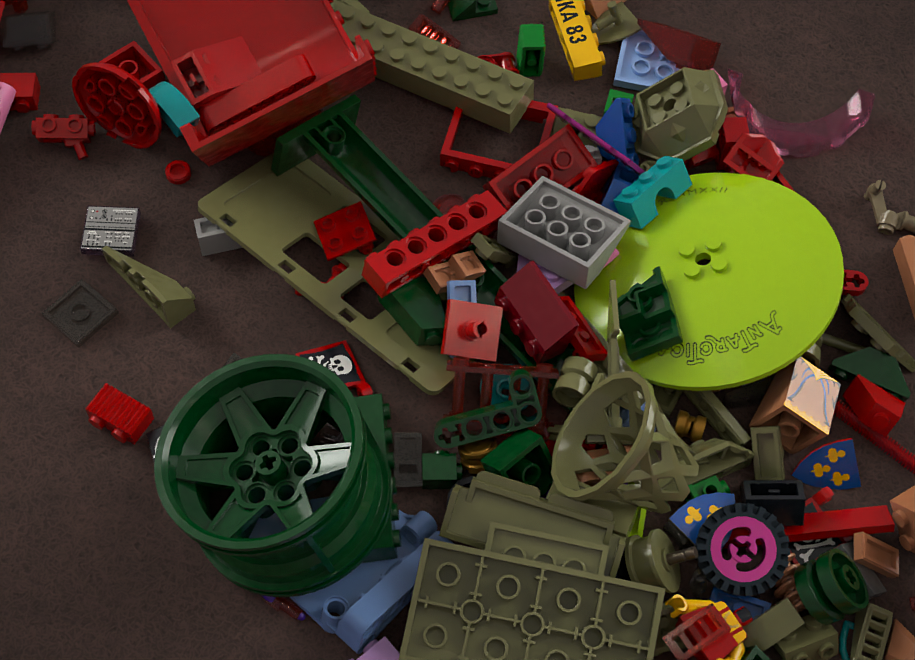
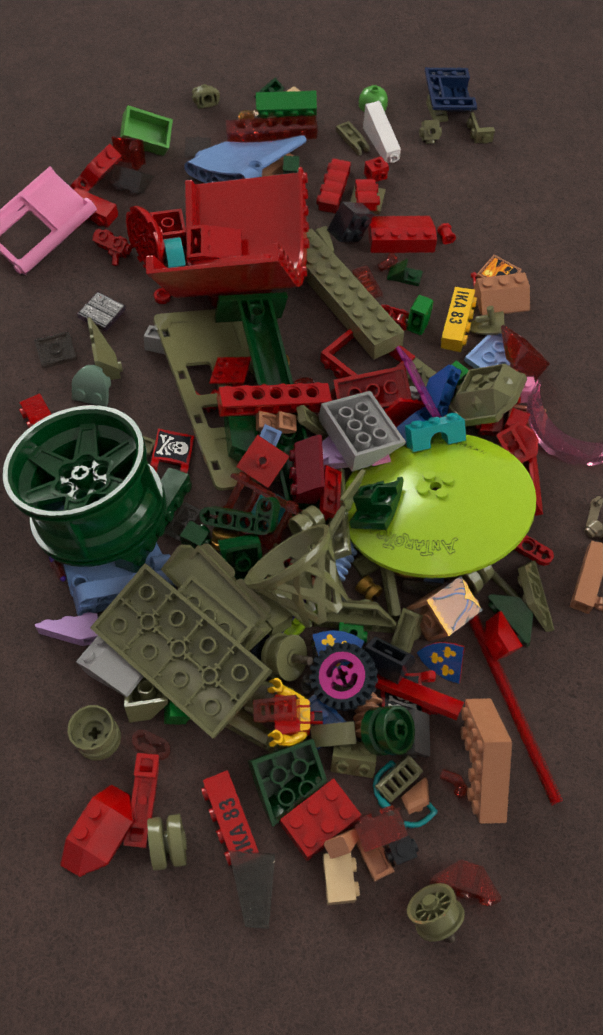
camera: 30 degrees right, 0 degrees up
(169, 339) = (91, 386): none -> sand green slope
(876, 555) = (436, 729): nougat tile -> none

